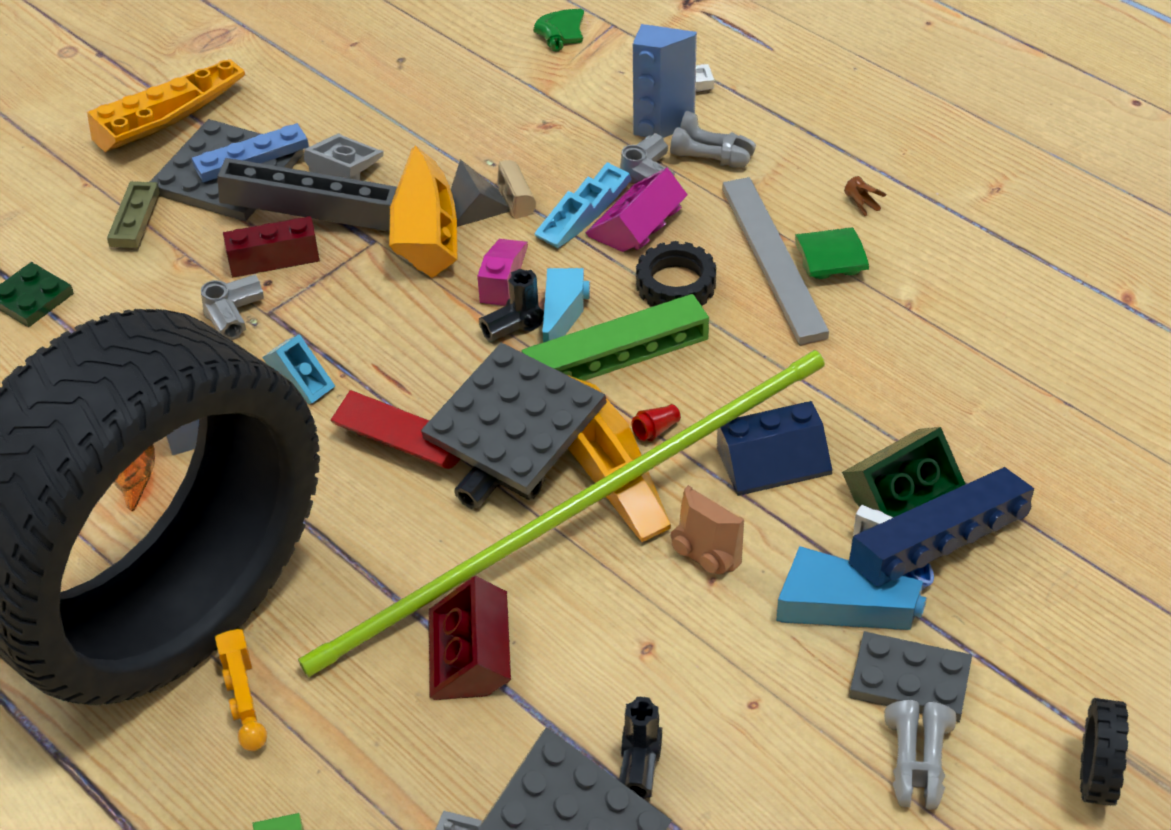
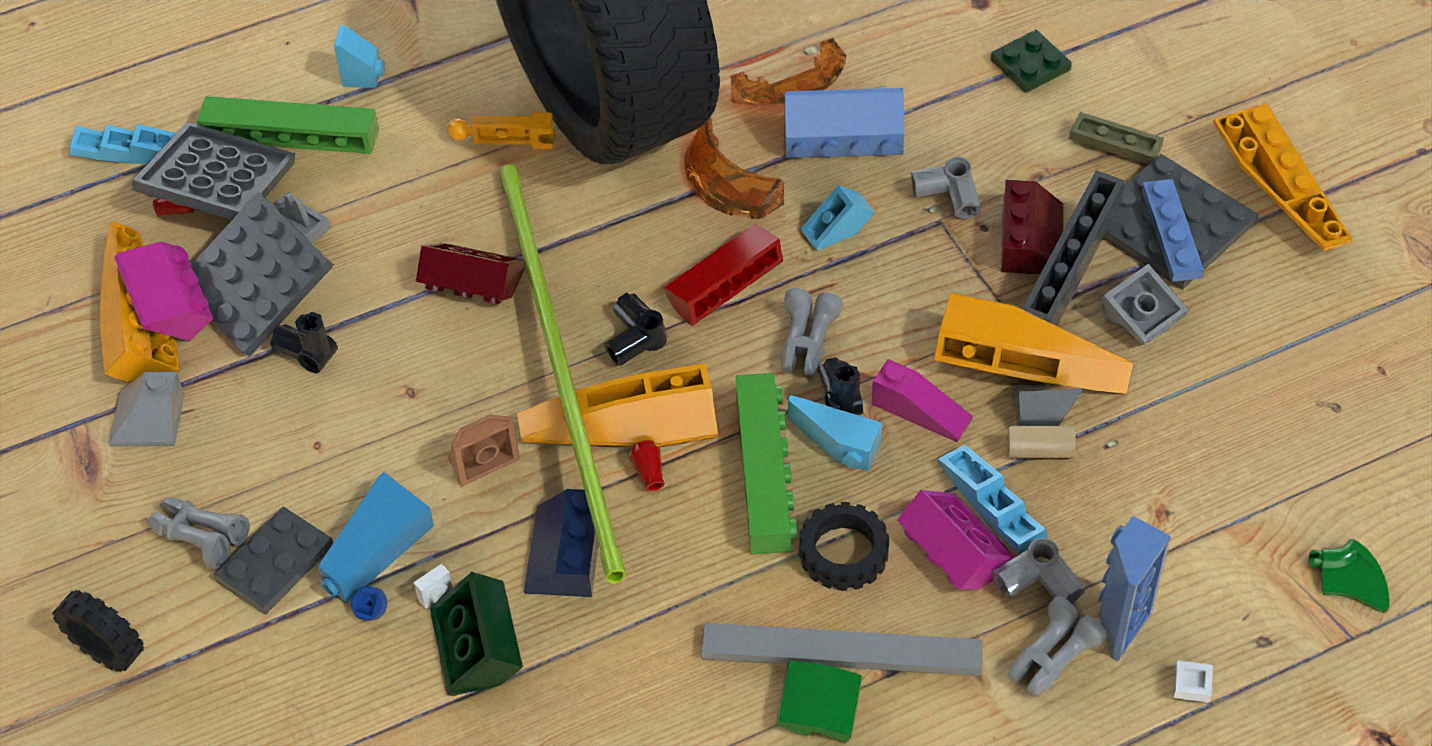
camera: 110 degrees right, 5 degrees up
(435, 360) = (799, 306): none -> light grey piece
(514, 417) = (676, 335): dark grey plate -> none
(940, 526) = (389, 627): dark blue brick -> none

